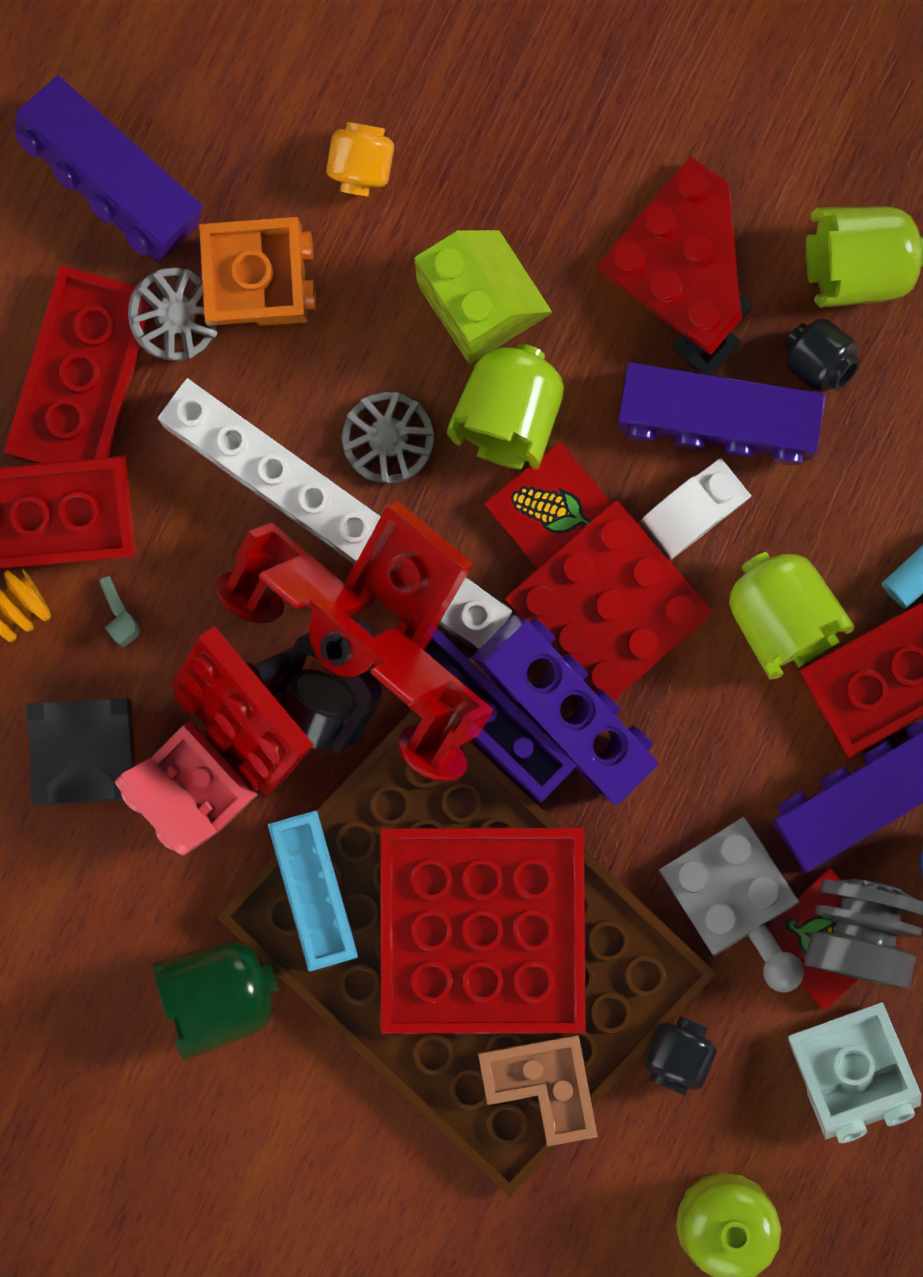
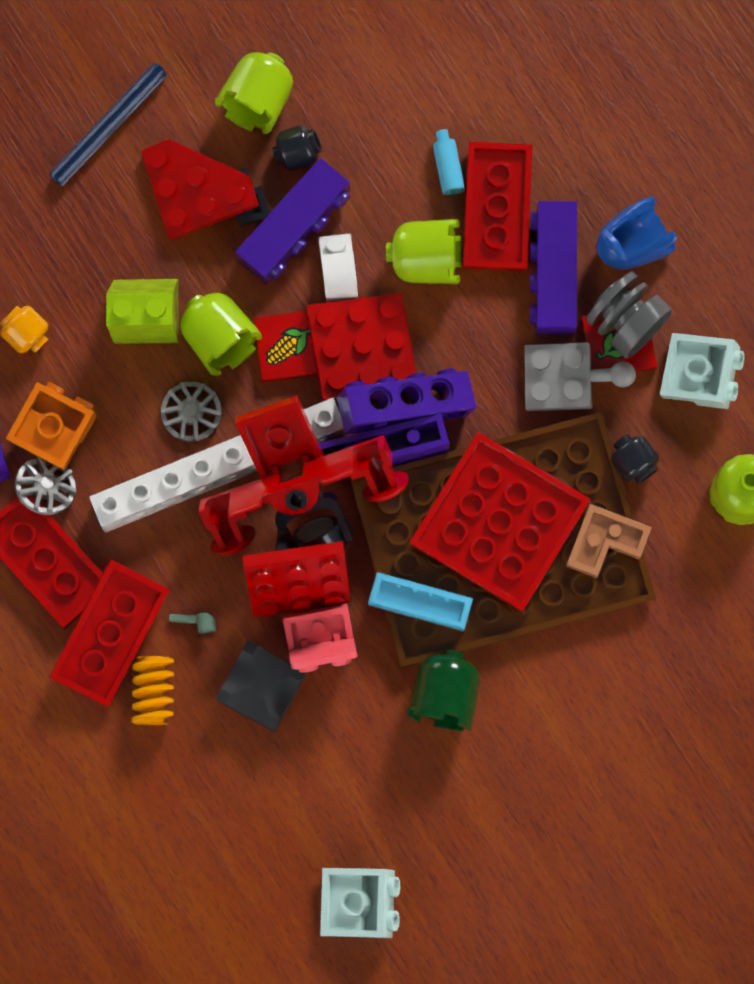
camera: 60 degrees left, 5 degrees down
(700, 93) = (108, 124): none -> dark blue axle

